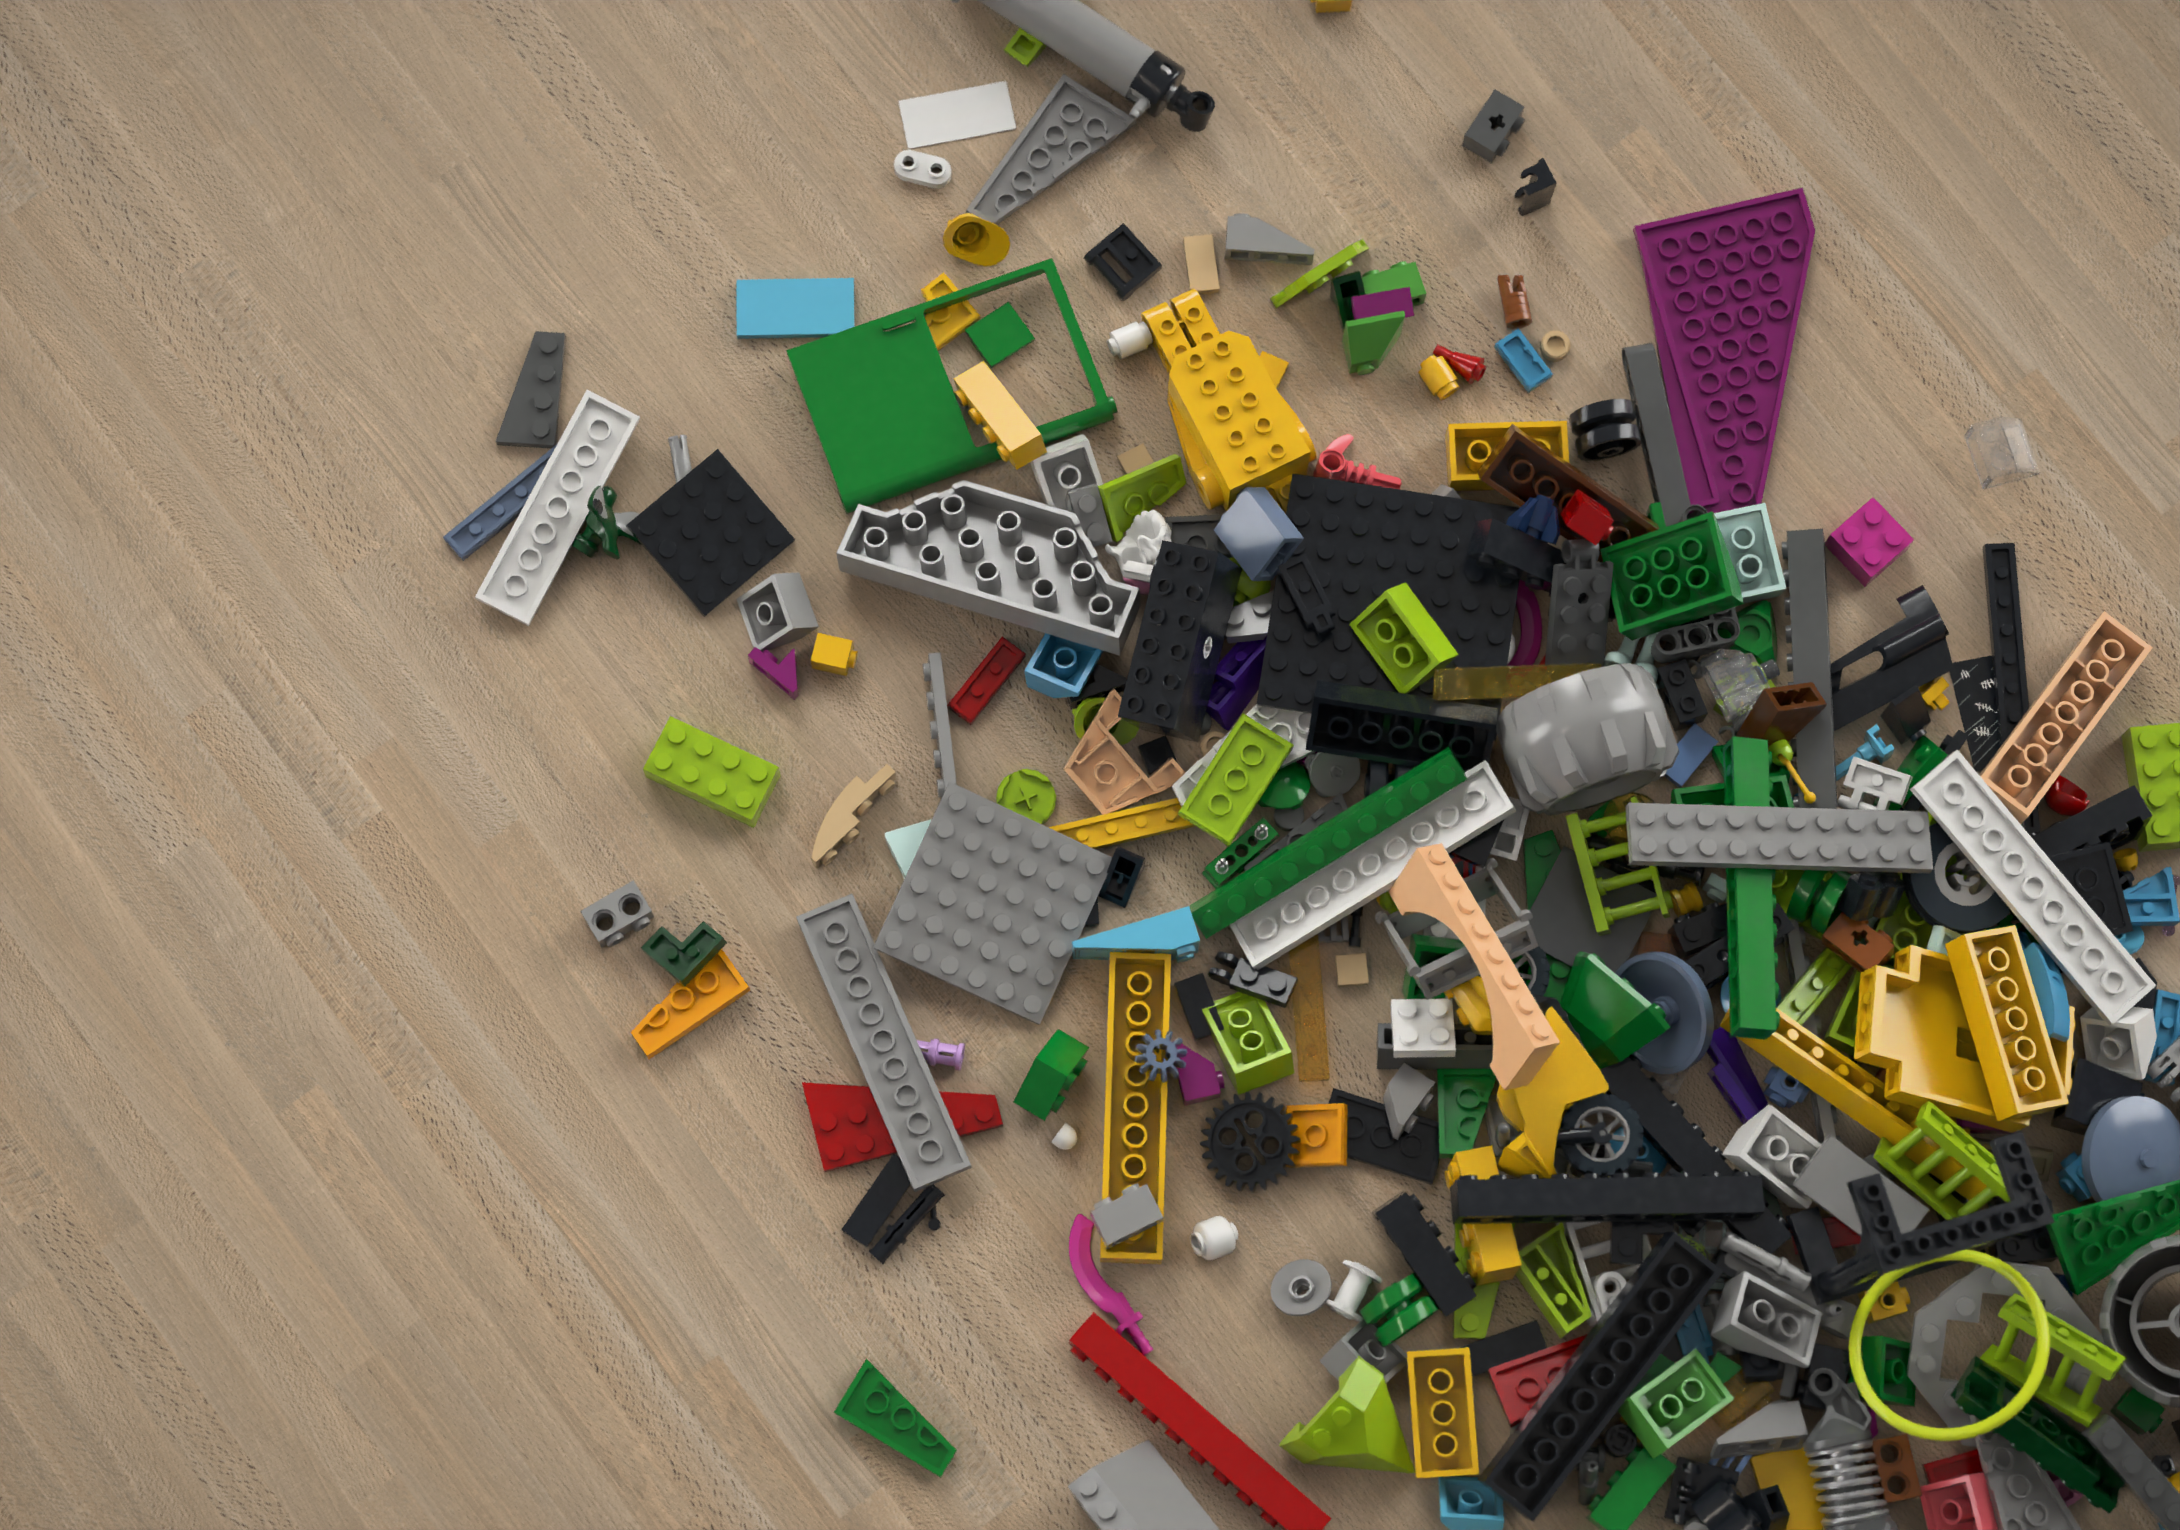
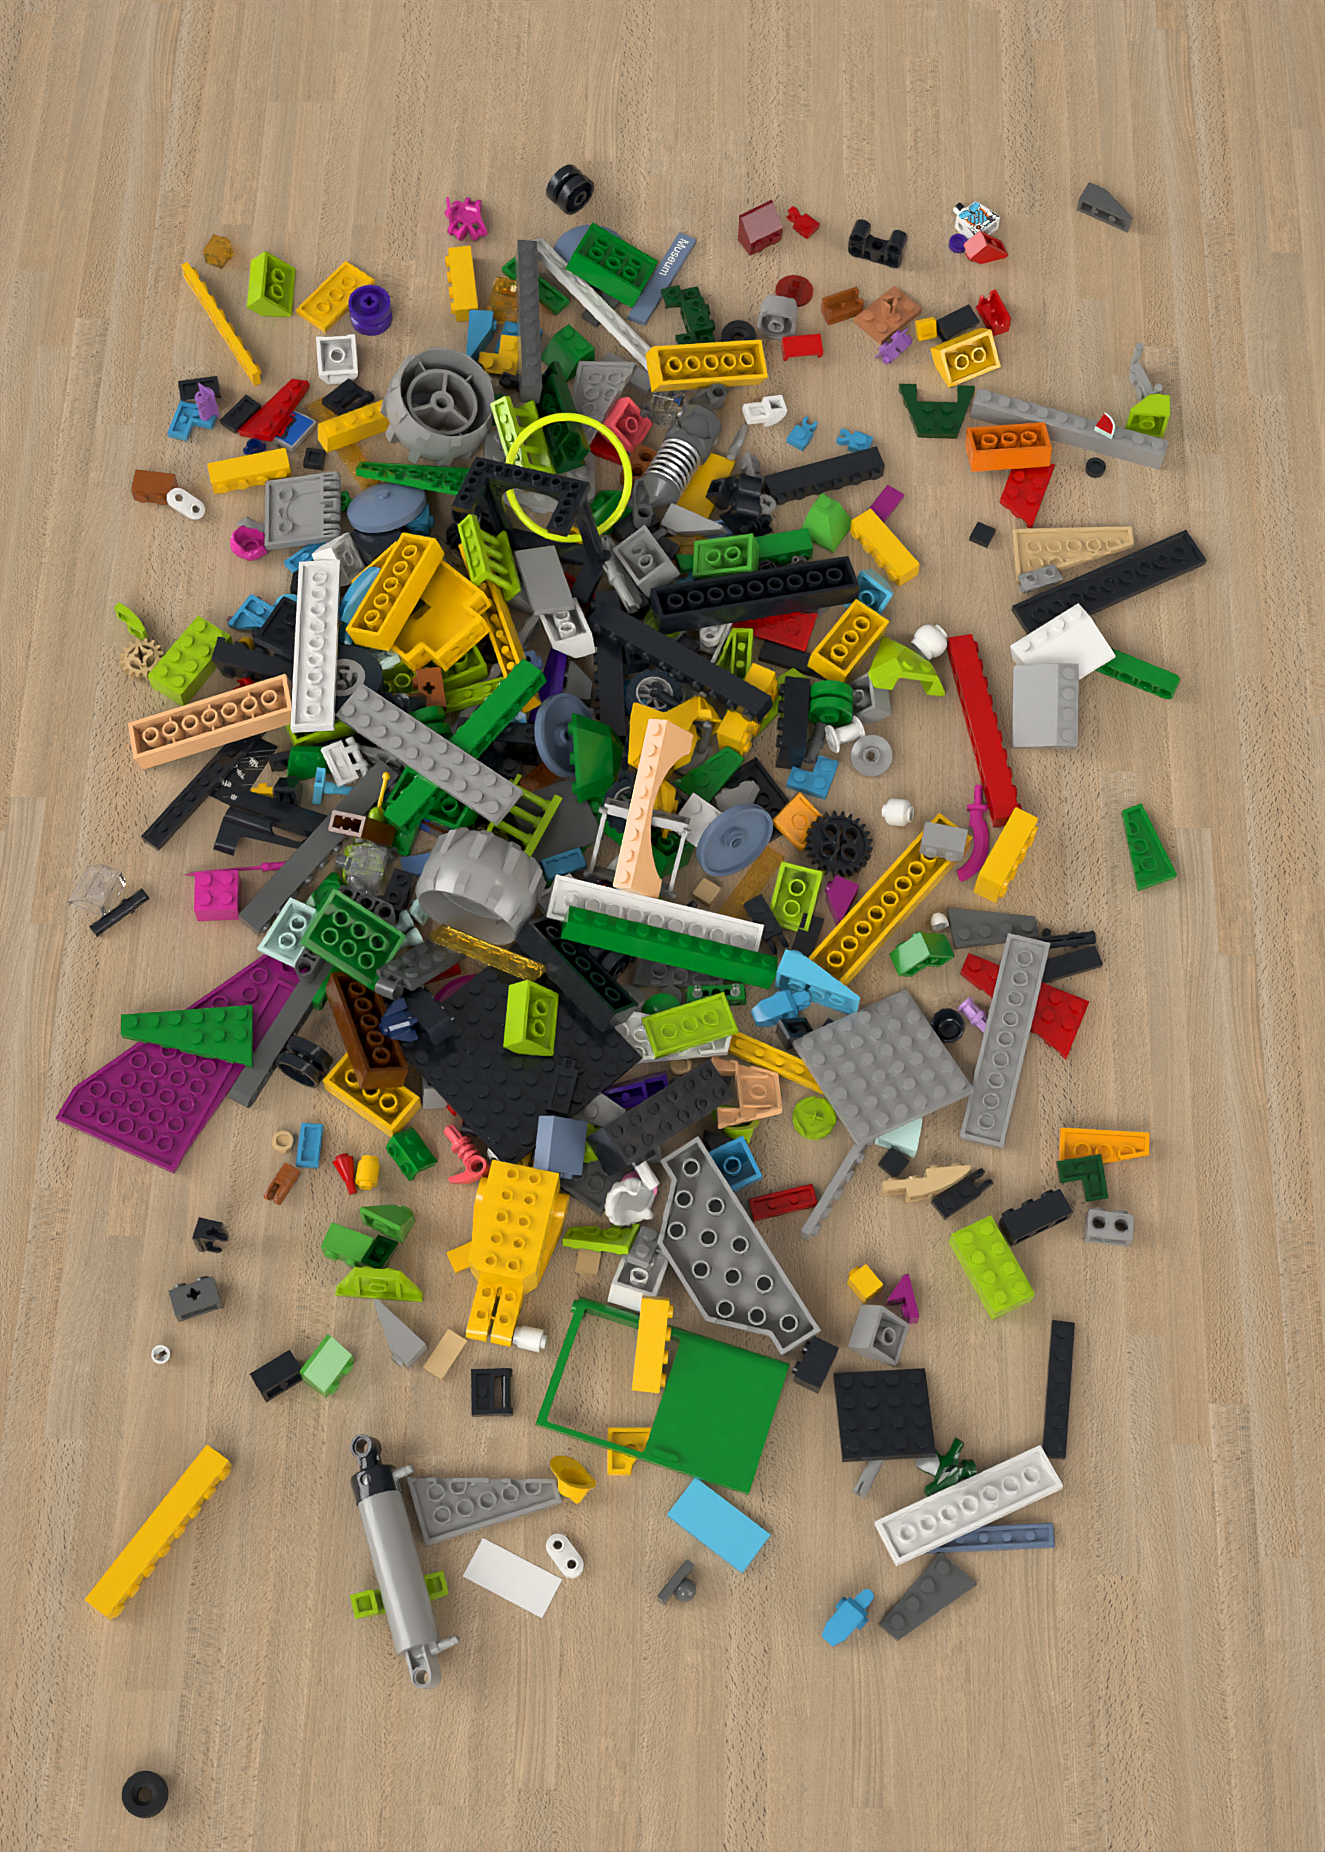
camera: 140 degrees left, 10 degrees down
(551, 702) = (1058, 1389): none -> black plate
(599, 312) = (848, 1617): none -> dark azure hinge
(705, 865) = (1035, 1216): none -> black brick
(787, 221) = (679, 1585): none -> dark grey tile
(803, 832) = (960, 1194): none -> black hinge
(819, 531) = (815, 1364): none -> black brick
(901, 812) = (893, 1163): none -> black tile
(958, 1012) = (948, 1025): none -> black hair
(999, 335) = (605, 1406): green piece -> none
(1010, 1170) = (986, 928): none -> dark grey wing
(1047, 1272) = (1007, 855): none -> yellow brick
(1149, 1058) = (855, 914): sand blue gear -> none
(1157, 890) = (780, 1006): none -> dark azure hinge
(1302, 157) = (327, 1366): none -> slope
(1337, 1211) = (815, 783): none -> dark azure plate
(1346, 117) = (277, 1376): none -> black hinge
(1350, 1497) = (929, 641): none -> white piece
(1362, 1030) = (734, 839): none -> sand blue dish
(1378, 1254) = (815, 744): none -> dark grey pin
(1383, 303) = (365, 1232): magenta tile -> none
(1413, 432) = (410, 1153): none -> green bracket
(1472, 51) = (158, 1349): none -> white hinge
(1533, 868) = (563, 863): none -> dark azure plate
(1587, 517) = (370, 998): red brick -> none
(1707, 1106) = (578, 684): none -> dark grey slope
(1735, 384) = (204, 1032): none -> green wing
(1852, 614) = (264, 867): none -> dark pink sword
(1952, 457) = (123, 909): none -> black pin

